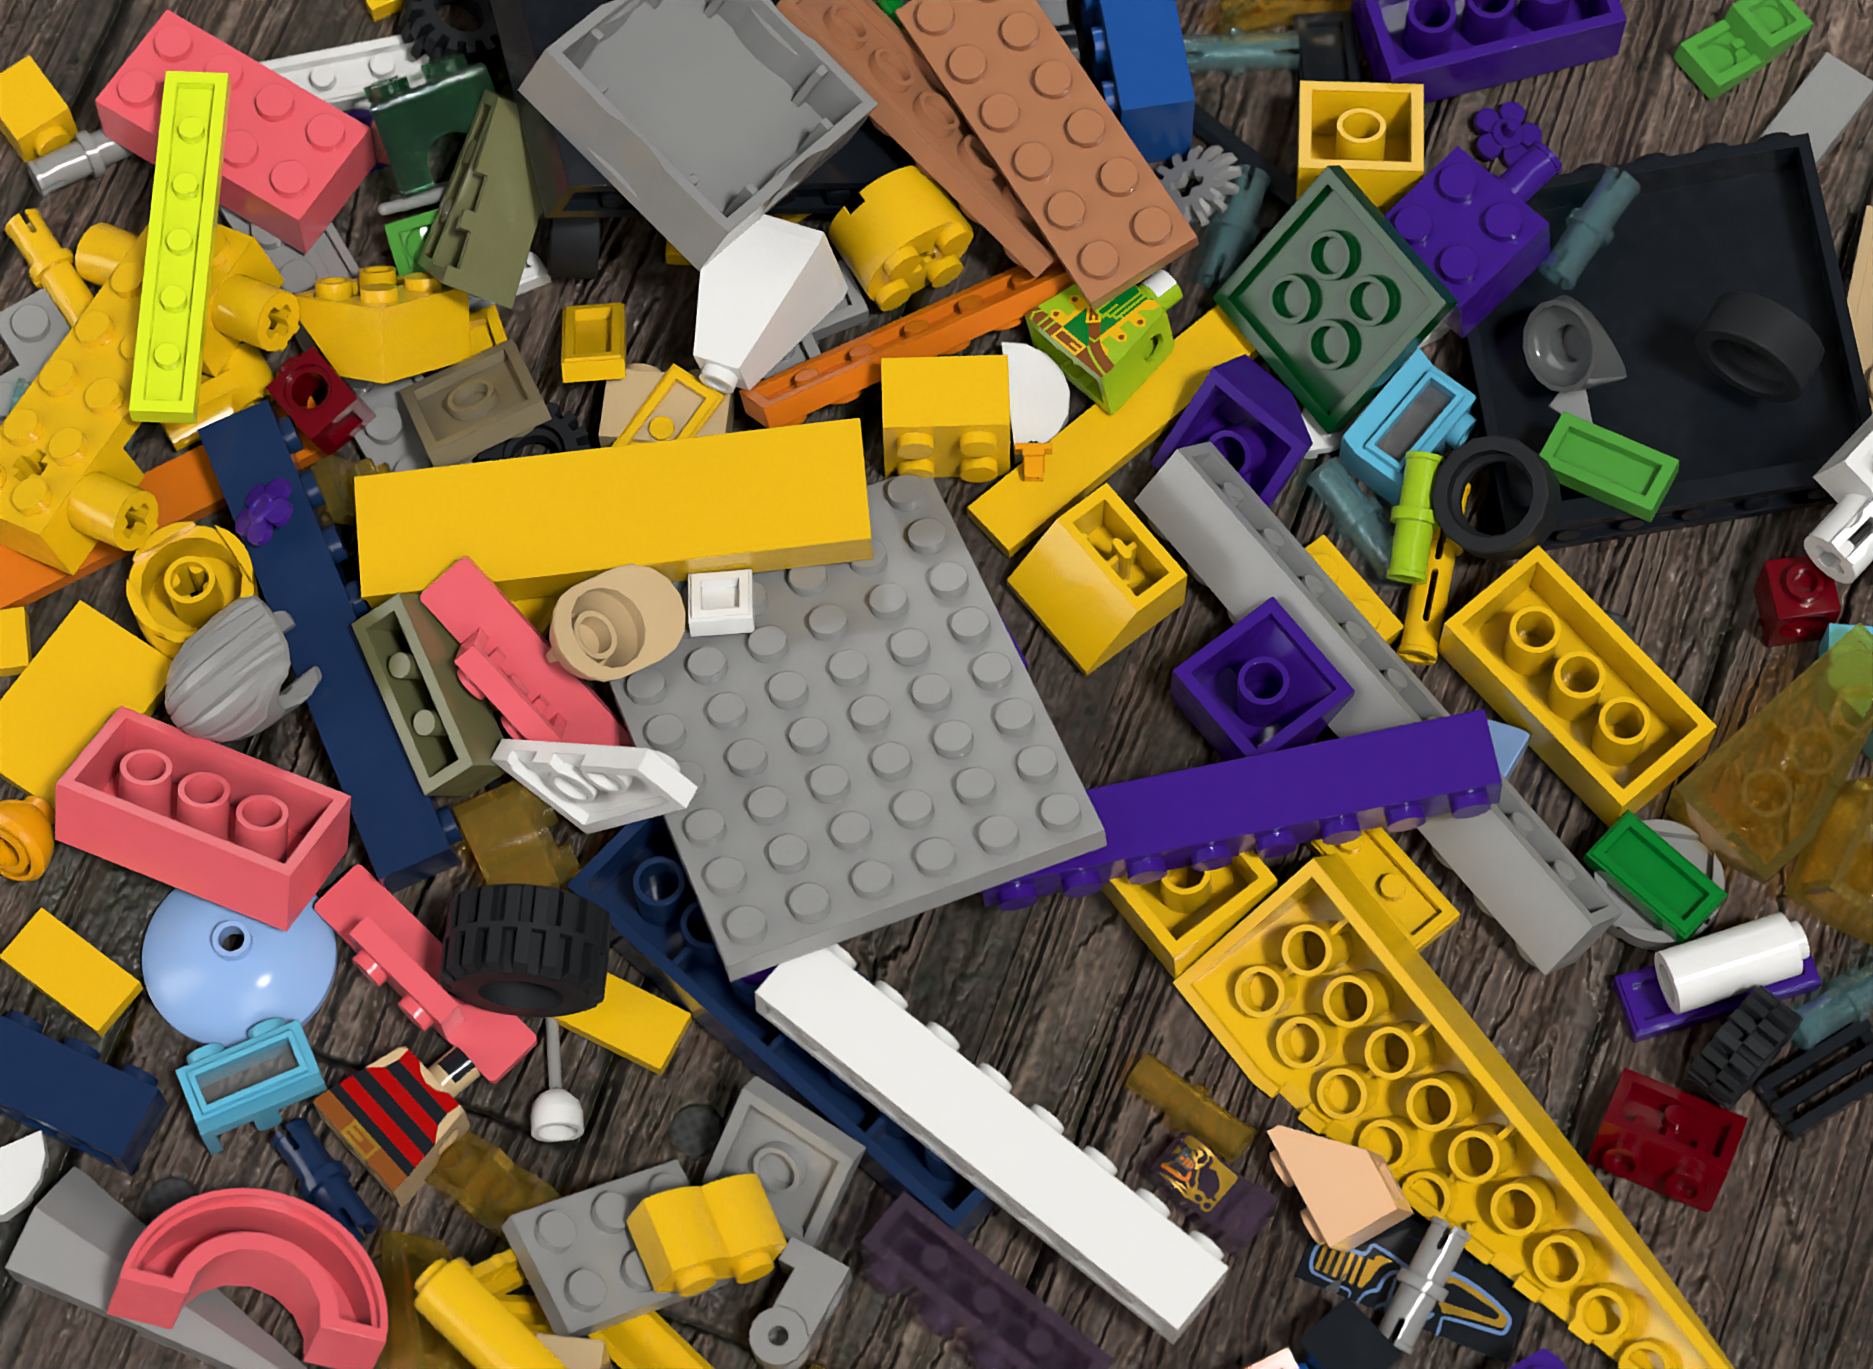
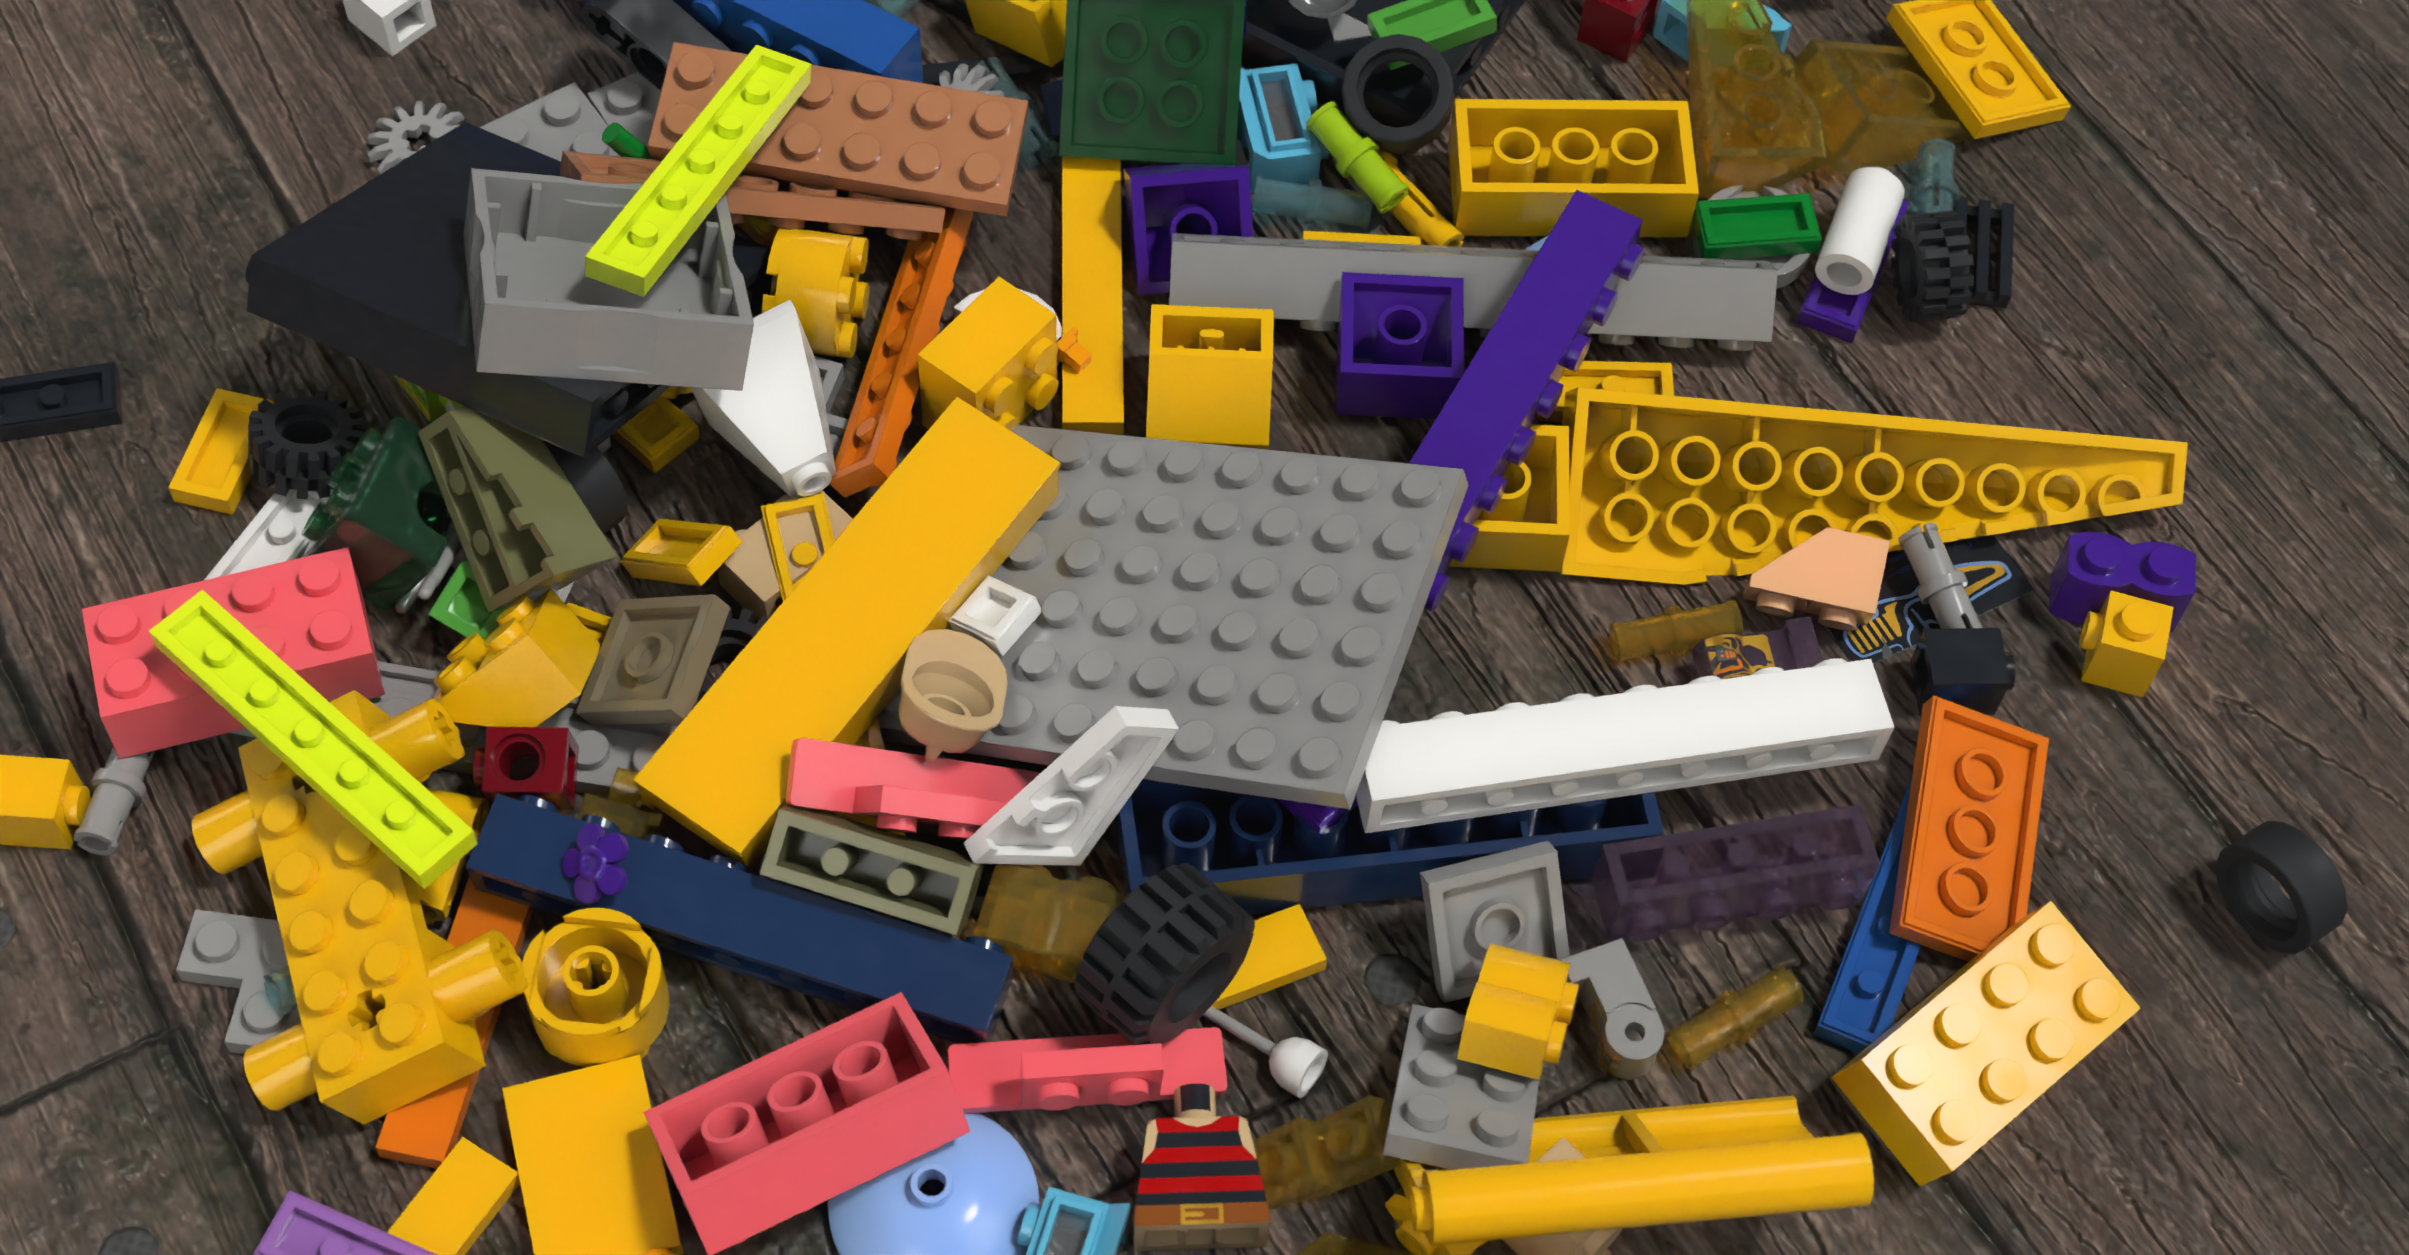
camera: 55 degrees left, 10 degrees down
(50, 265) = (192, 889): yellow pin -> none
(232, 674) = (716, 987): light grey hair -> none
(863, 72) = (697, 171): none -> neon yellow plate
(1110, 348) = (1030, 246): lime torso -> none
(1667, 1140) = (1954, 367): dark red bracket -> none

